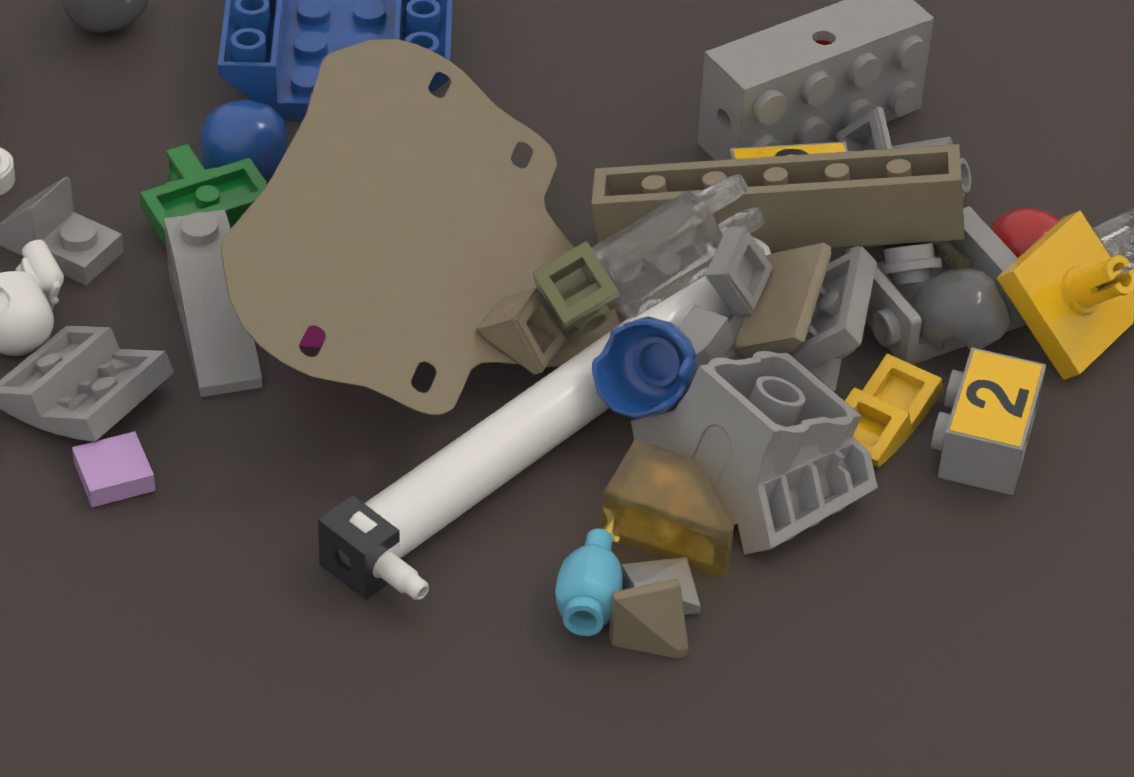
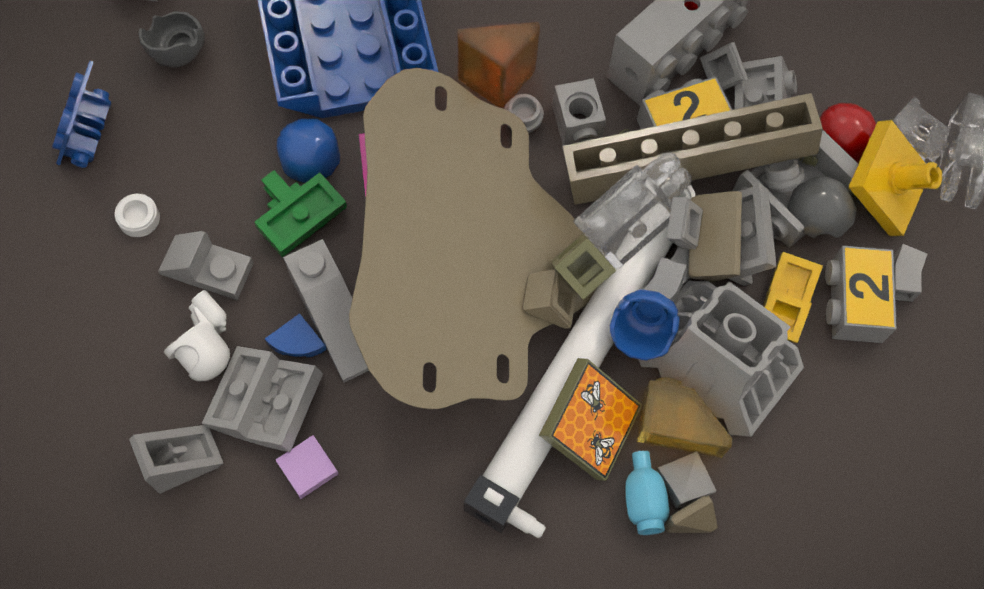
camera: 15 degrees left, 25 degrees up
(151, 330) = (296, 339): none -> blue tile
(534, 474) = (591, 419): none -> tile
(543, 71) = (497, 59): none -> clear orange slope
(569, 148) = (527, 109): none -> light grey plate
(637, 140) = (583, 99): none -> light grey brick
(1069, 414) = (907, 272): none -> light grey piece

